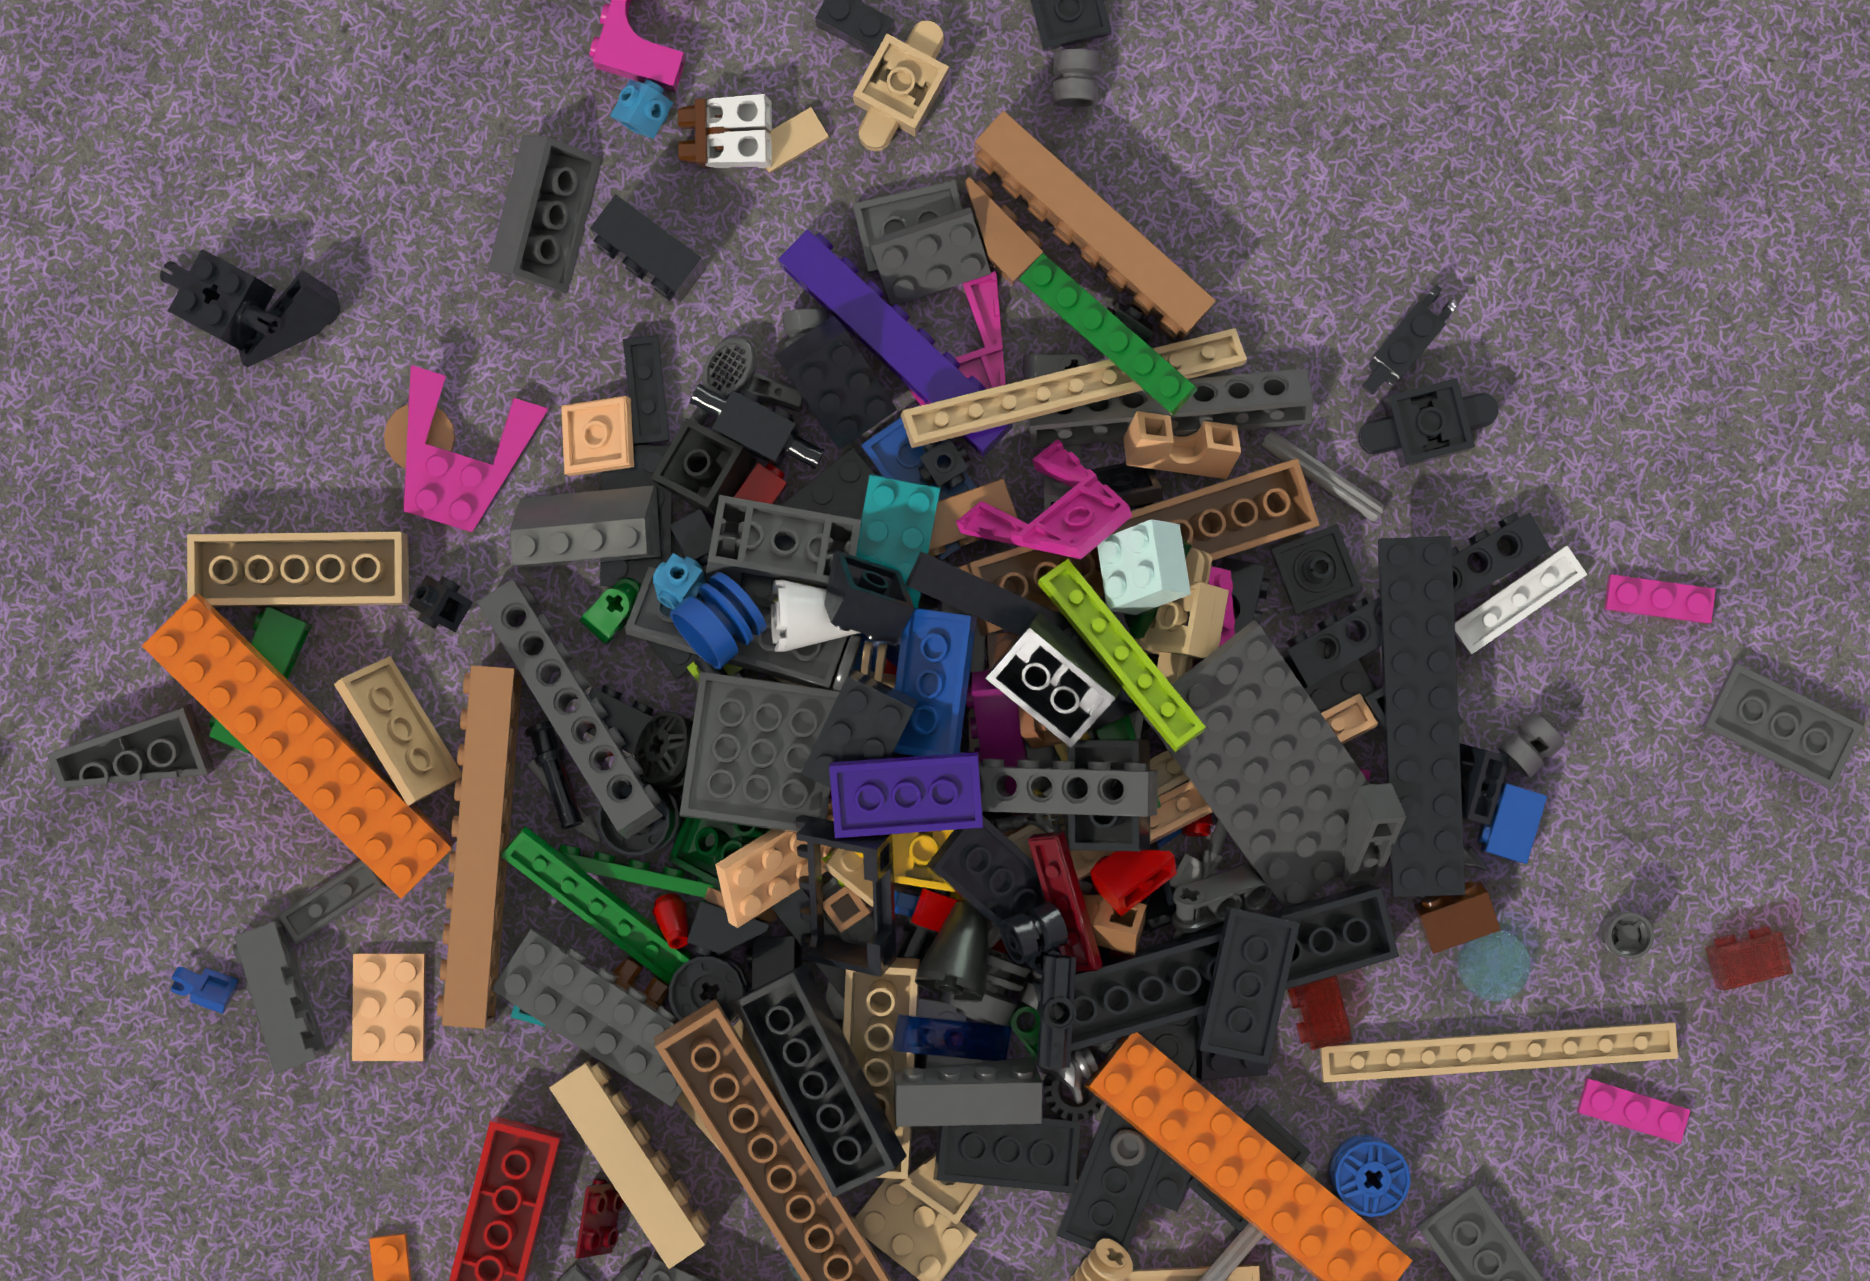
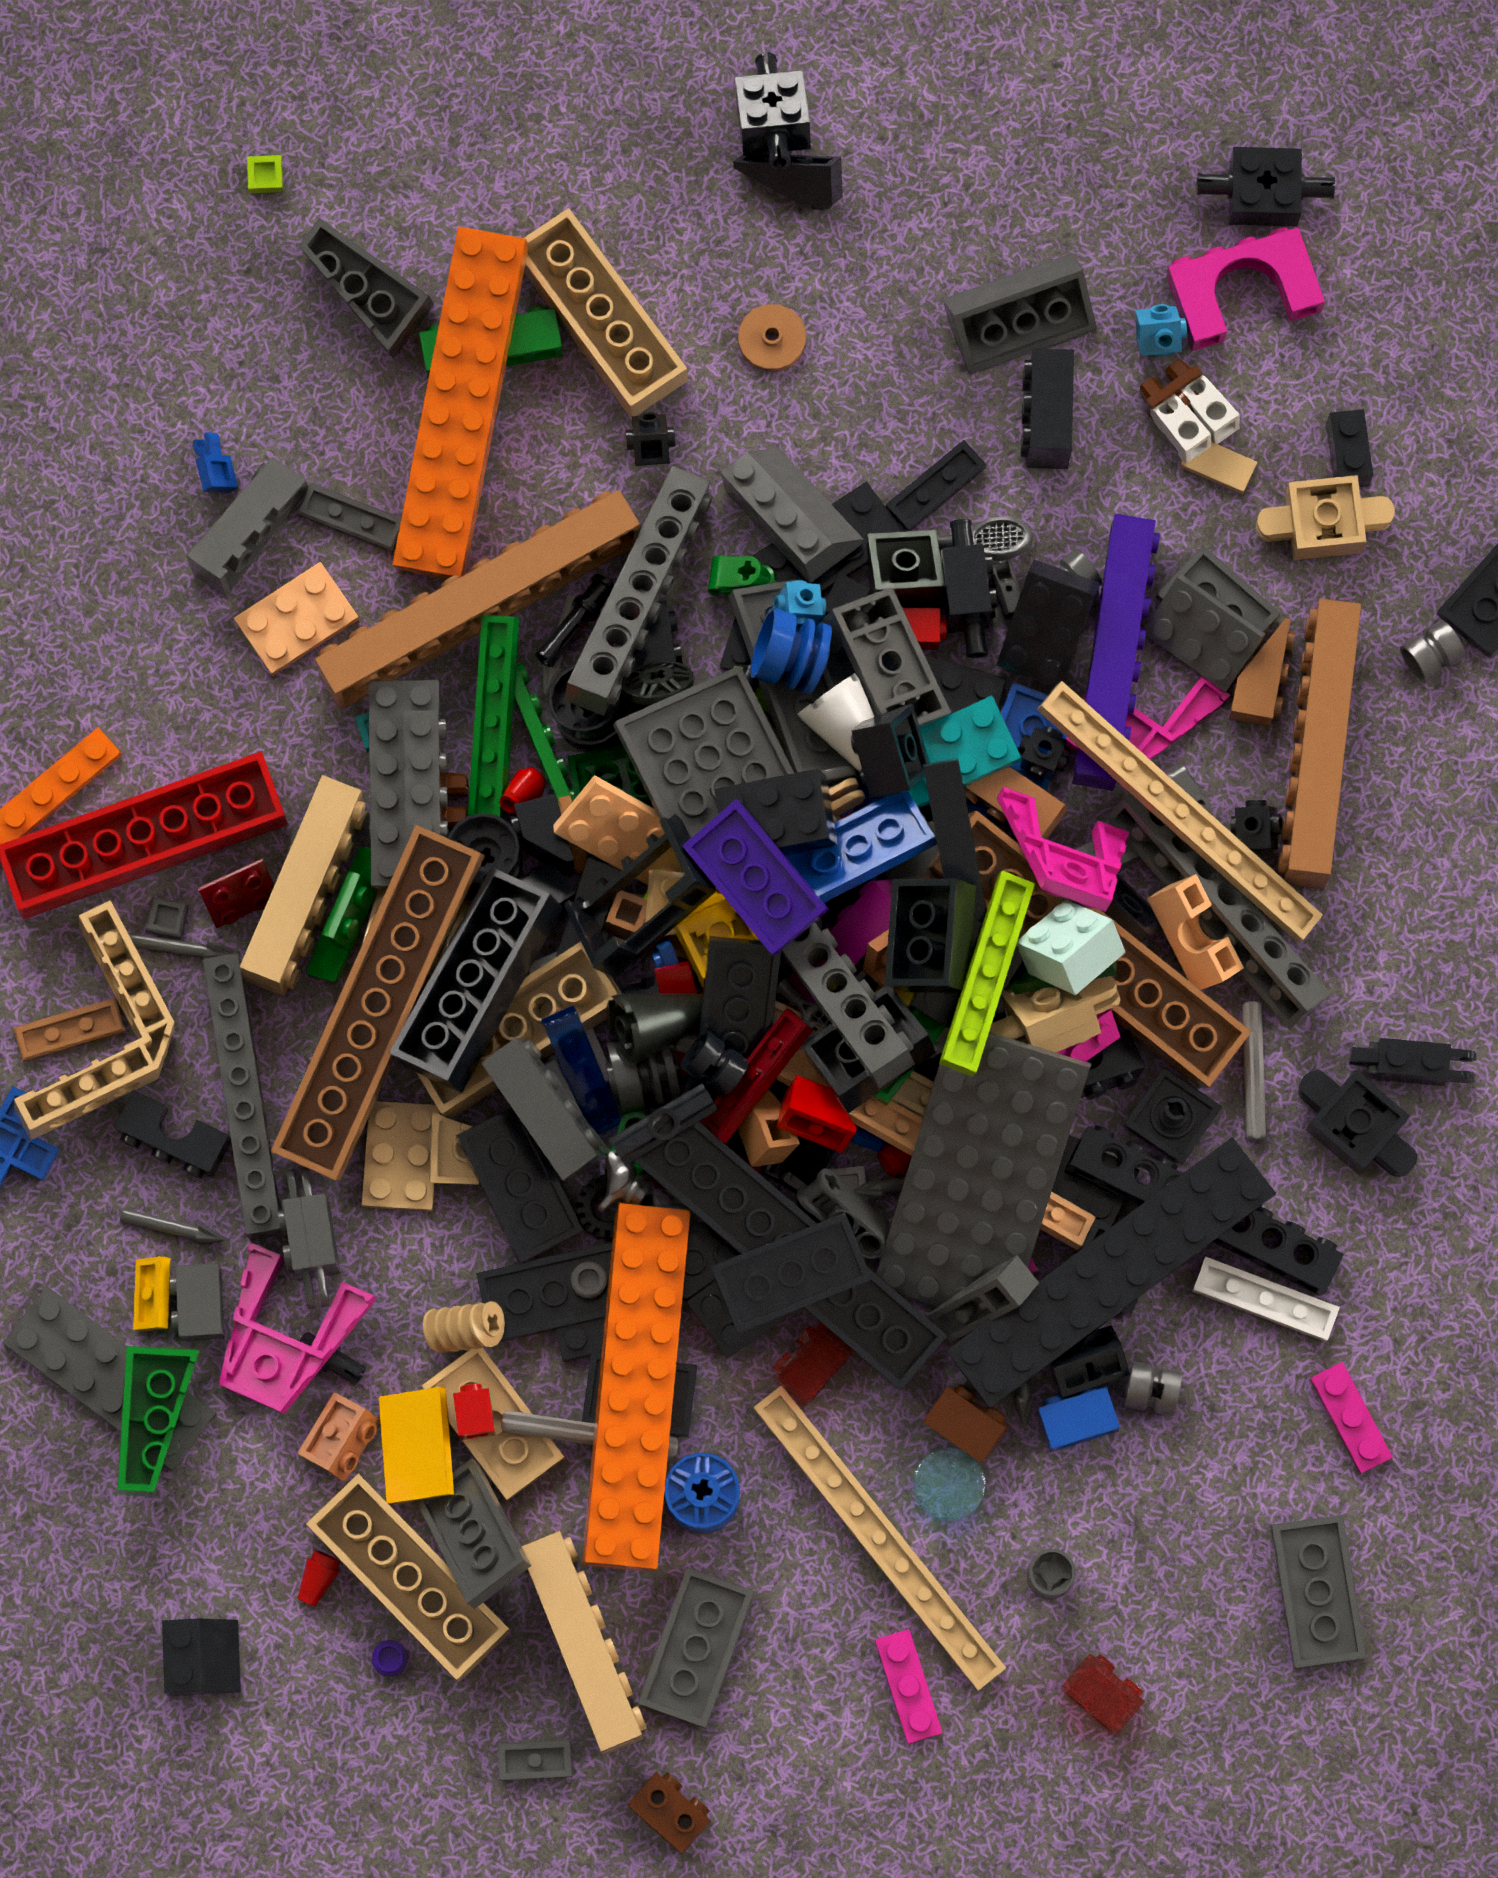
camera: 60 degrees right, 10 degrees down
(398, 730) = (526, 473): tan plate -> none
(447, 484) = (750, 383): dark pink wing -> none
(597, 436) = (871, 472): light nougat tile -> none
(681, 1144) = (344, 920): none -> green bracket
(1108, 334) = (1241, 809): green plate -> none

